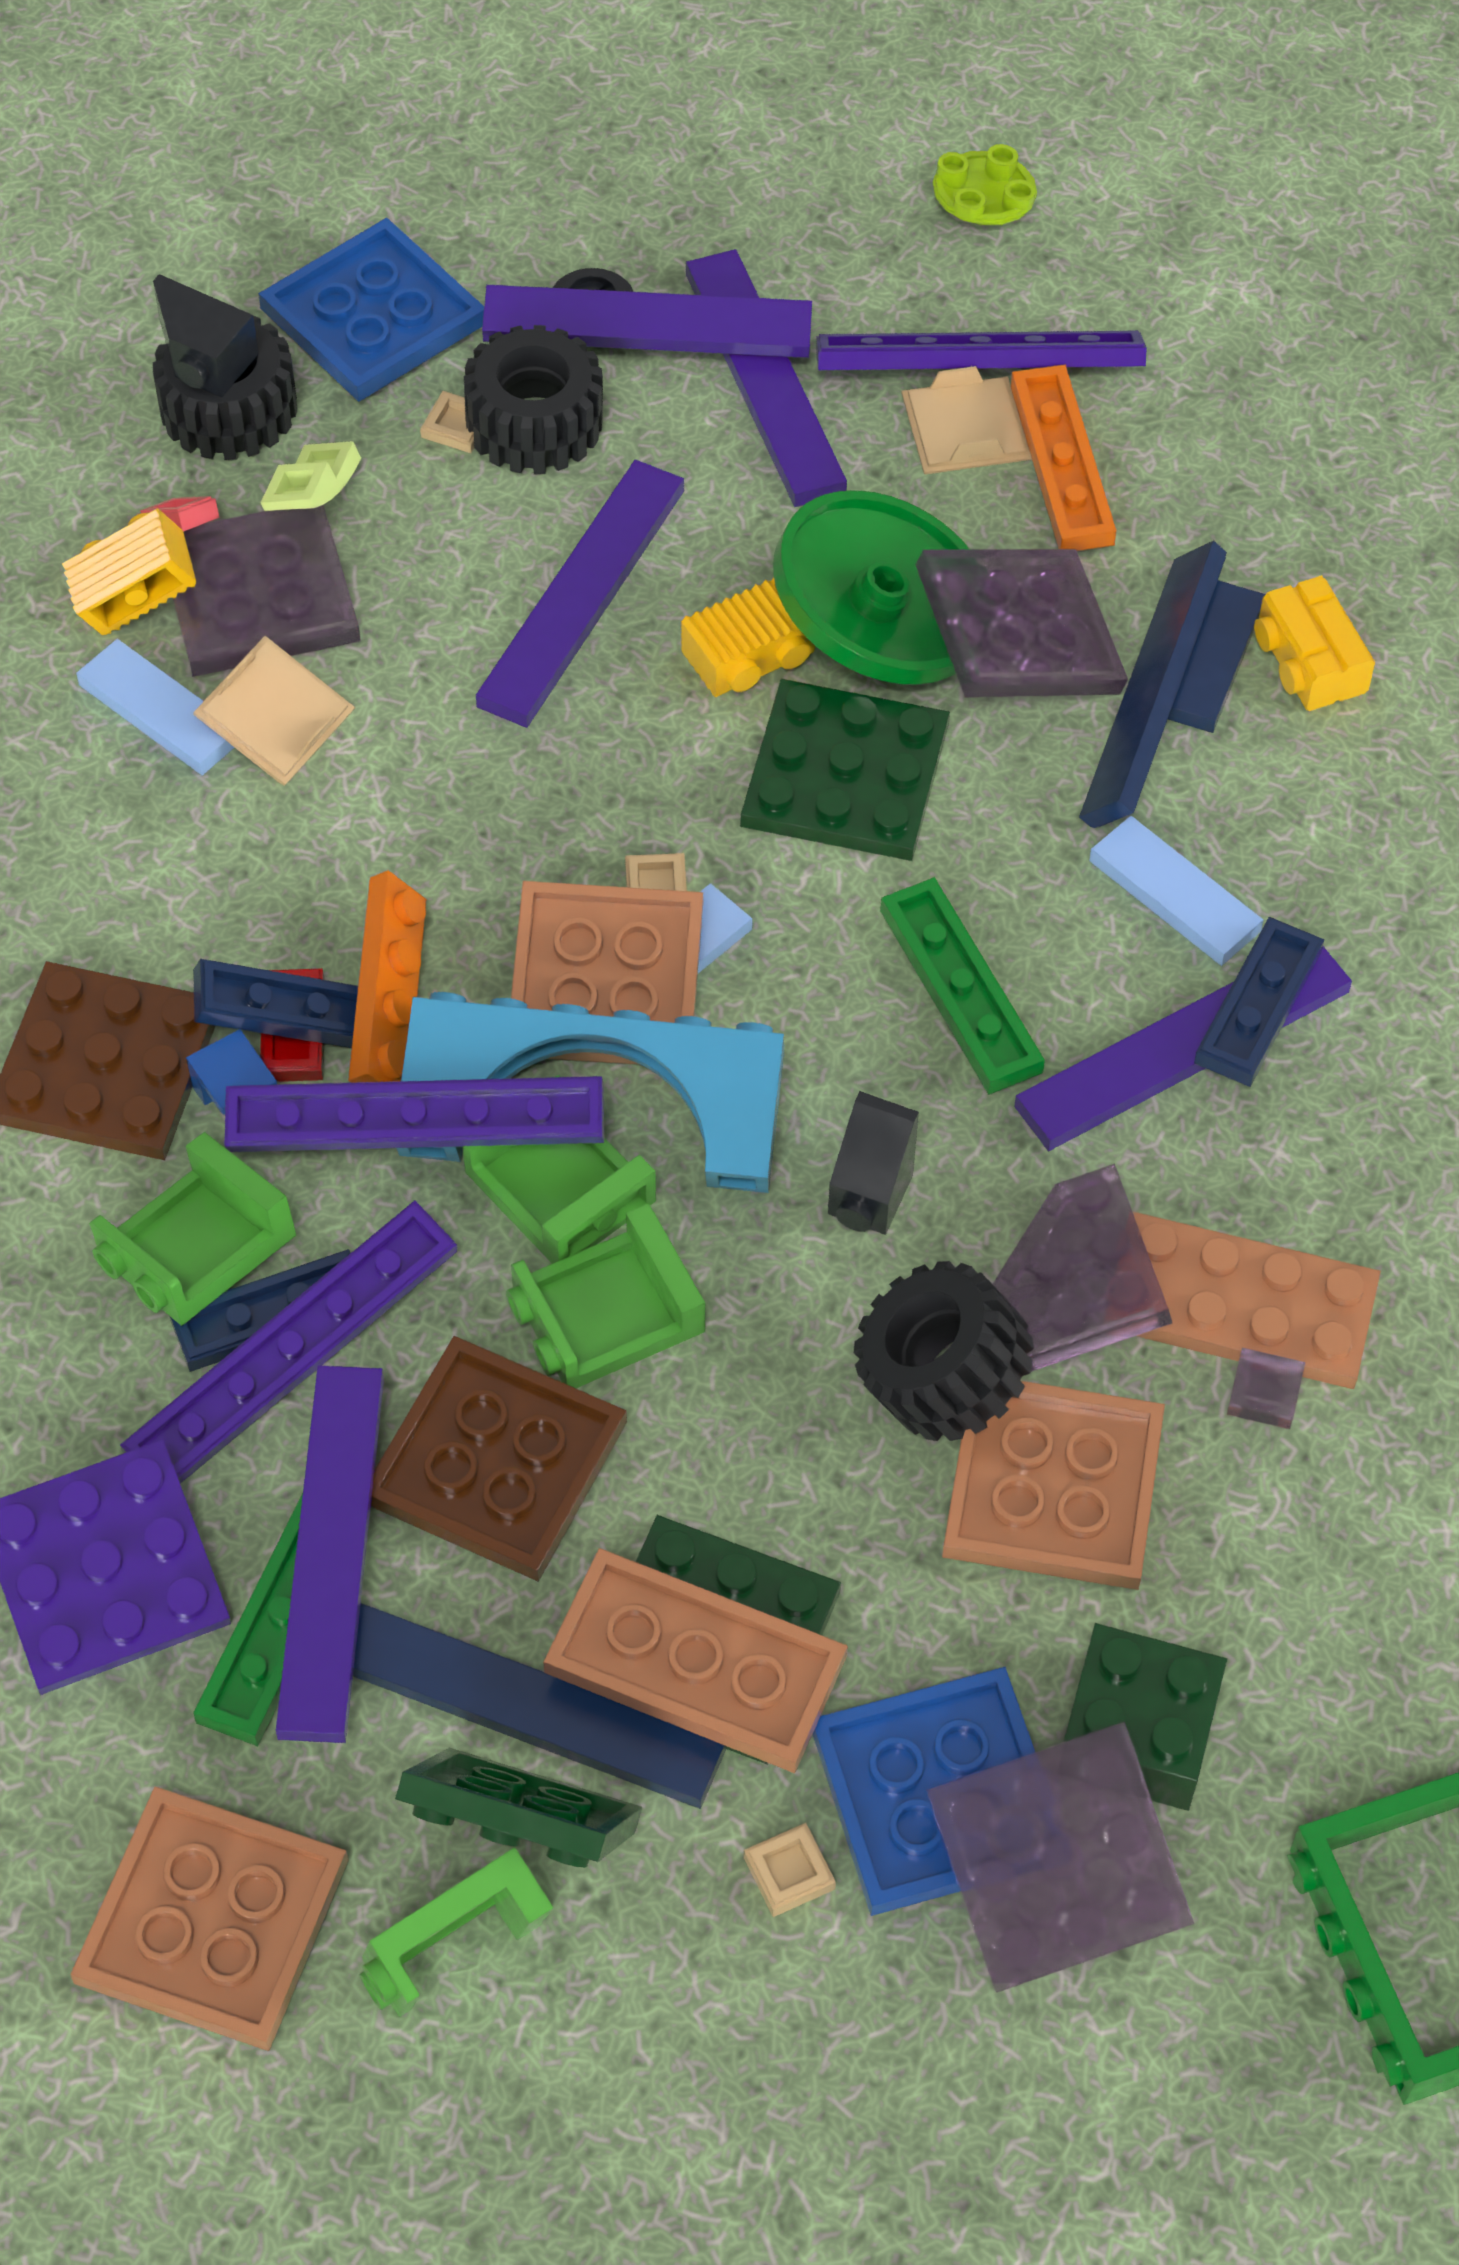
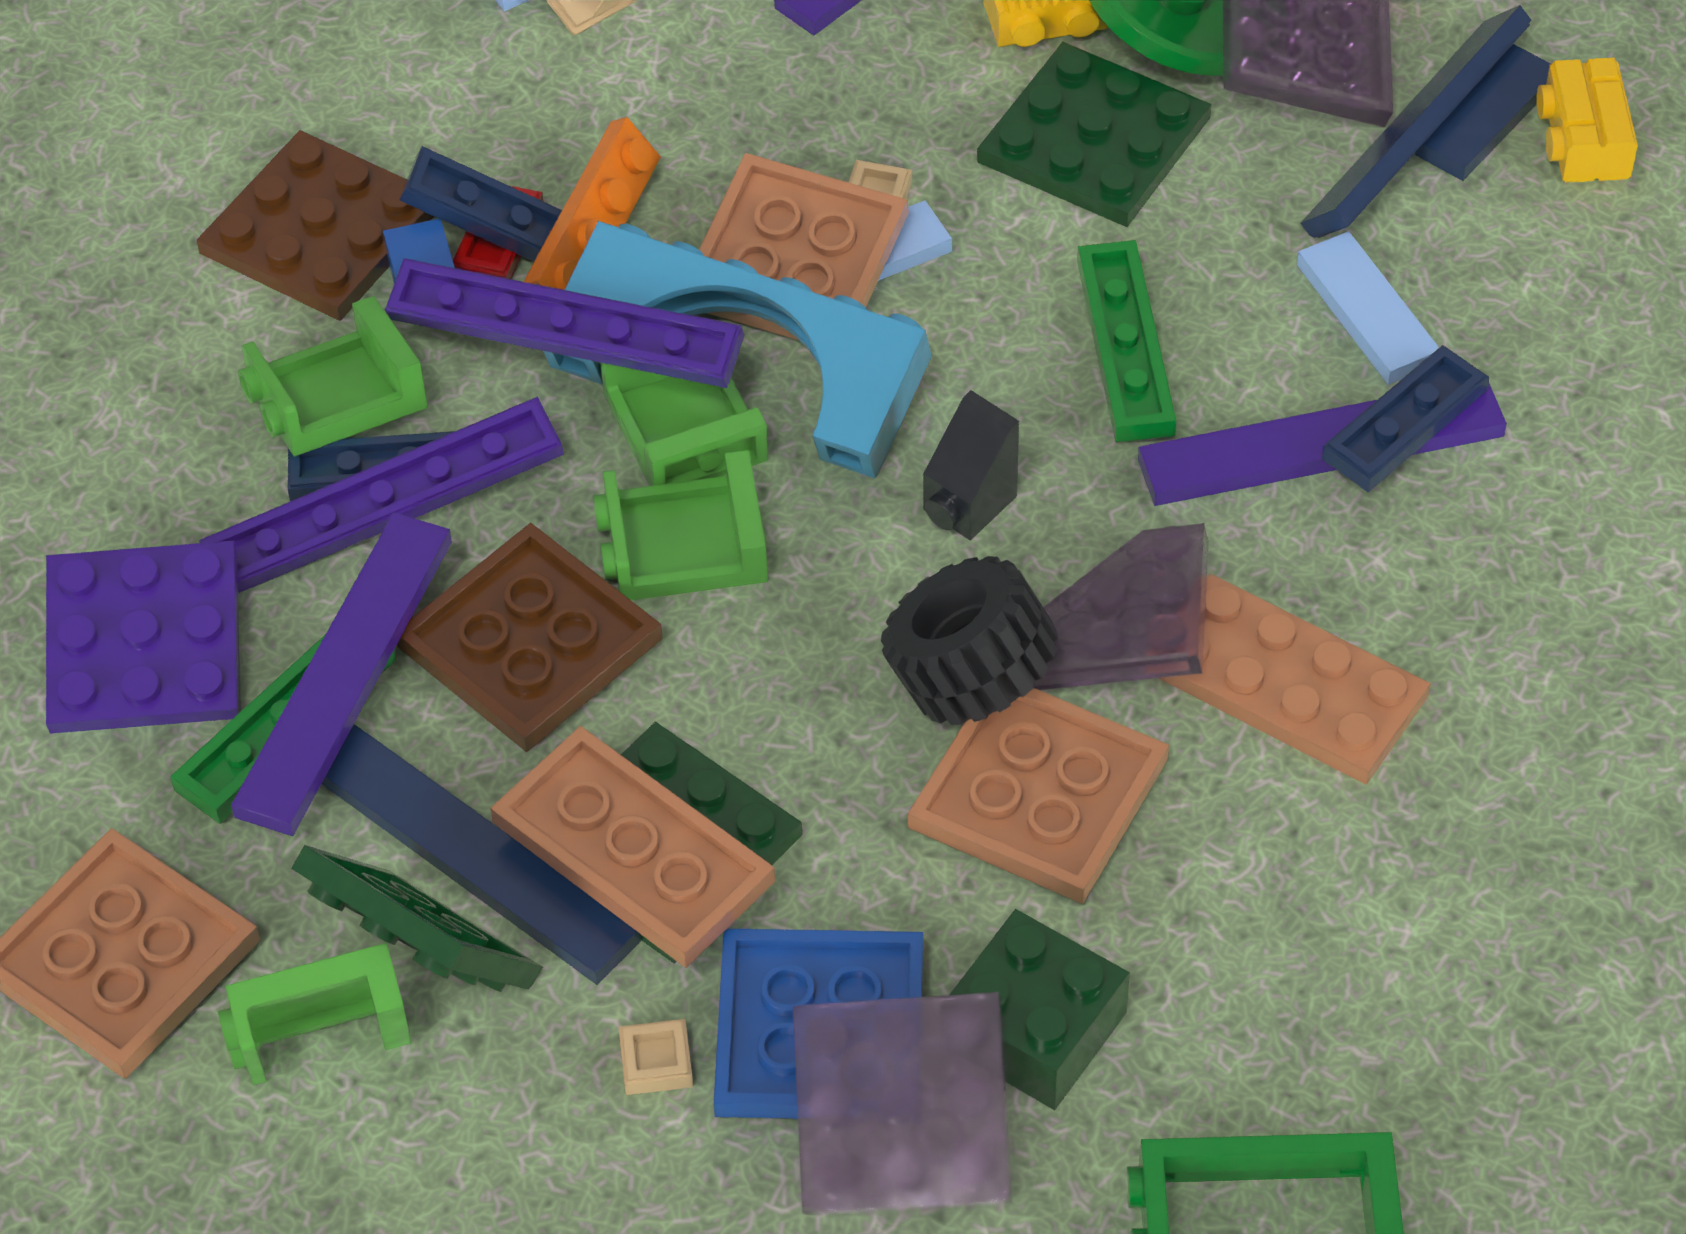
camera: 20 degrees right, 5 degrees down
(1266, 1388) = (1275, 758): clear purple plate -> none

